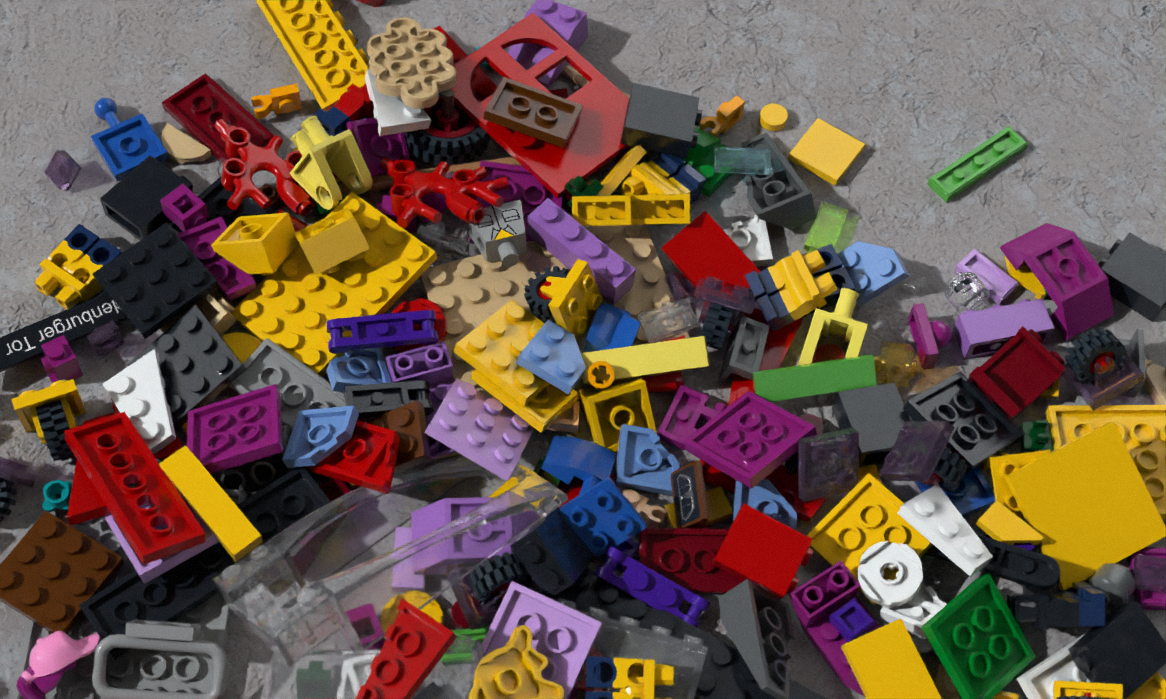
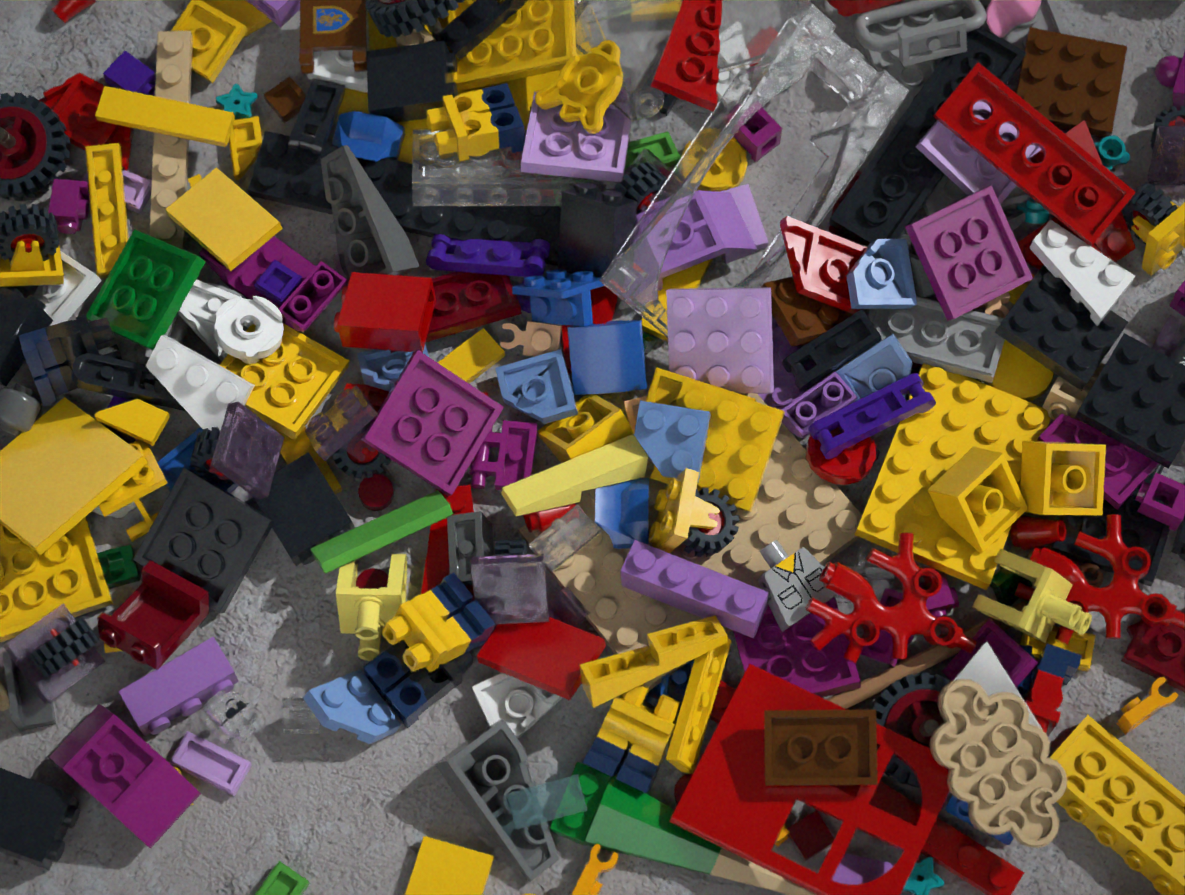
camera: 165 degrees right, 10 degrees up
(211, 503) = (956, 157): yellow slope -> none
(579, 187) = (720, 673): dark green tile -> none
(609, 371) = (615, 447): light orange bush -> none
(661, 121) = (661, 805): black brick -> none
(689, 496) = (480, 355): slope -> none
(826, 227) = (418, 763): clear neon green tile -> none
(900, 357) = (296, 588): clear yellow brick -> none
(927, 335) = (260, 649): magenta tile -> none

